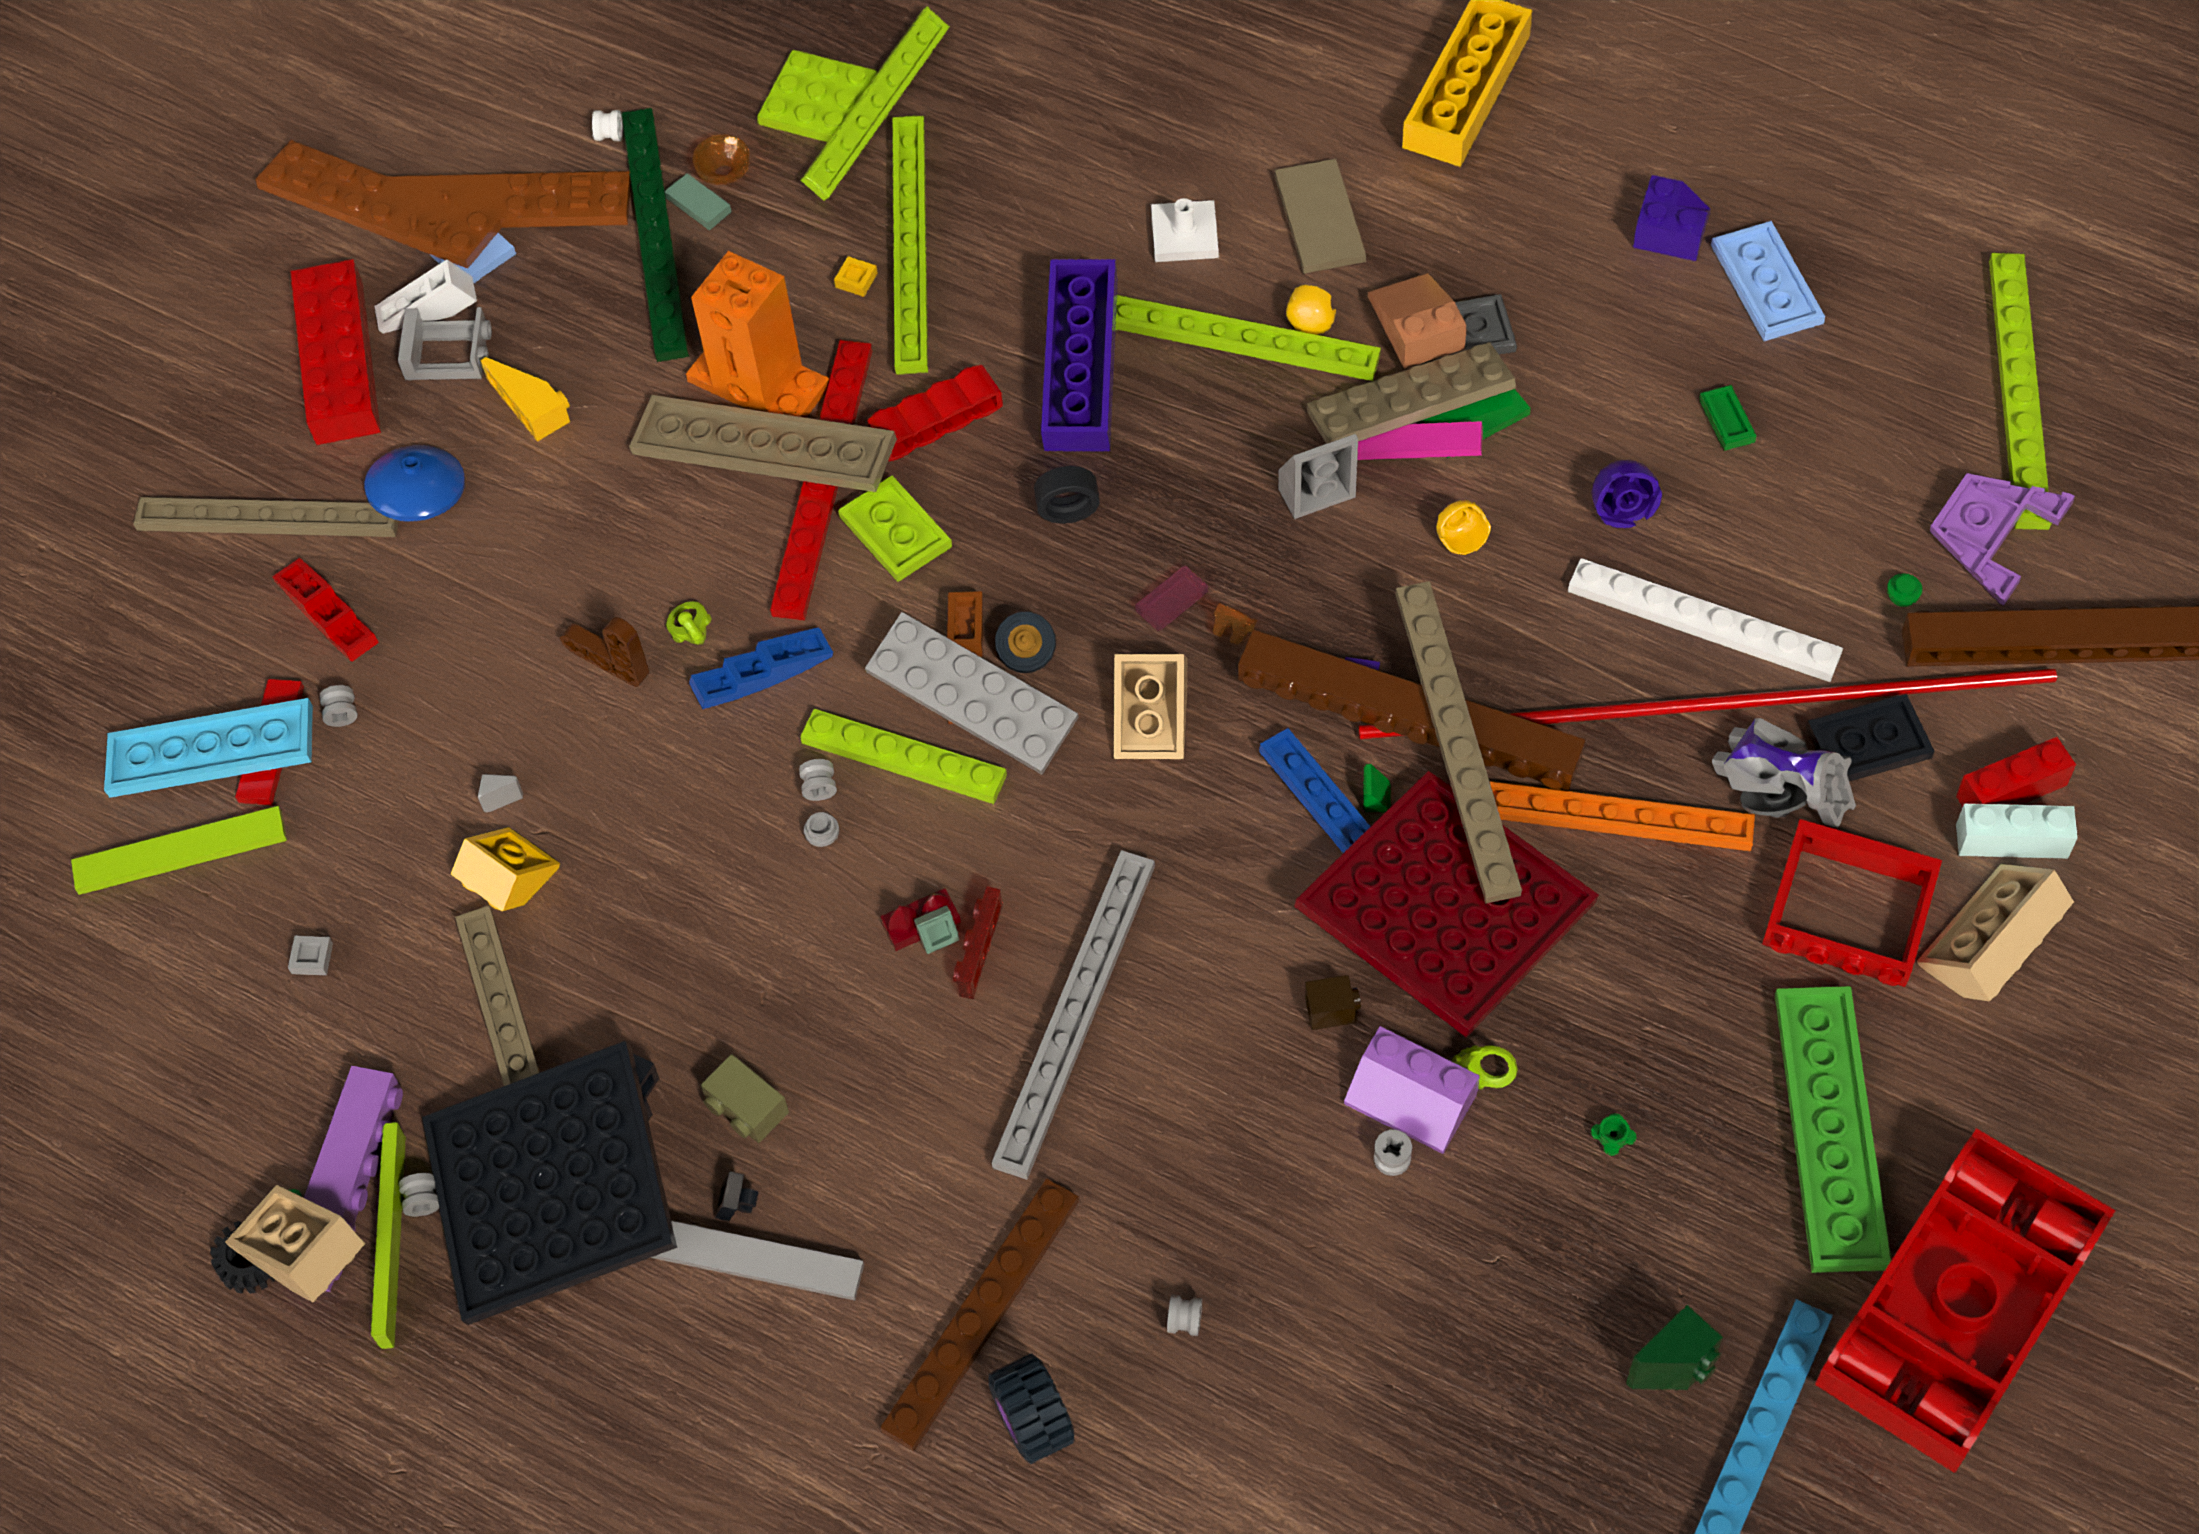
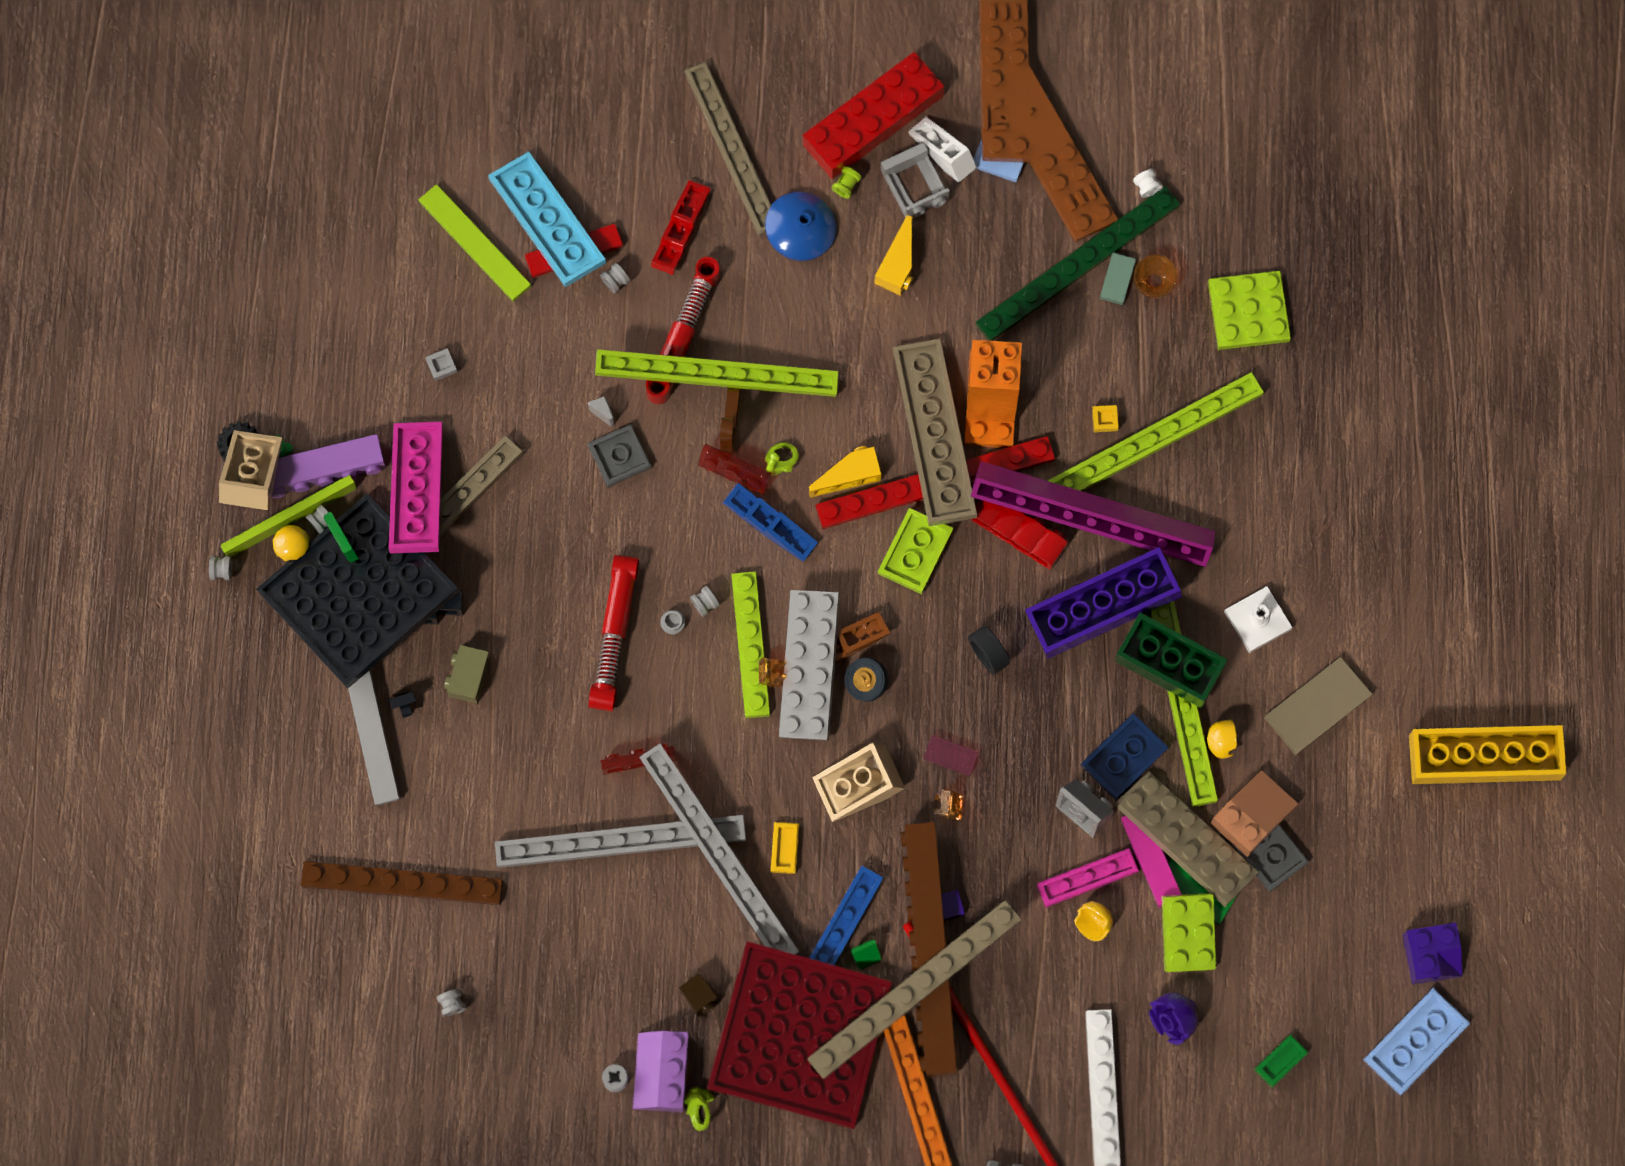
camera: 60 degrees right, 15 degrees up
(395, 413) = (846, 182): none -> lime bush
(402, 1355) = (220, 567): none -> light grey wheel
(426, 1245) = (290, 542): none -> yellow hair
(456, 1046) = (416, 487): none -> dark pink plate
(458, 661) = (683, 330): none -> red piece
(462, 1166) = (340, 537): none -> green tile
(503, 868) = (552, 445): yellow slope -> none
(534, 639) = (716, 373): none -> lime plate
(567, 801) = (619, 455): none -> dark grey tile
(669, 675) = (734, 469): none -> clear red plate
(724, 855) = (614, 629): none -> red piece
(756, 546) = (852, 471): none -> yellow slope
(875, 104) = (1261, 353): lime tile -> none
(900, 922) = (640, 715): dark red tile -> none
(937, 929) = (634, 729): sand green tile -> none
(955, 742) = (771, 672): none -> clear orange tile
(960, 324) = (1093, 513): none -> magenta brick
(1031, 1408) = (346, 942): black wheel -> none
(1146, 894) = (716, 850): none -> light grey plate
(1188, 827) = (784, 848): none -> yellow tile
(1189, 313) = (1170, 660): none -> dark green brick
(1273, 419) = (1124, 756): none -> dark blue plate
(1402, 520) = (1087, 878): none -> dark pink tile
(1527, 436) = (1188, 932): none -> lime plate

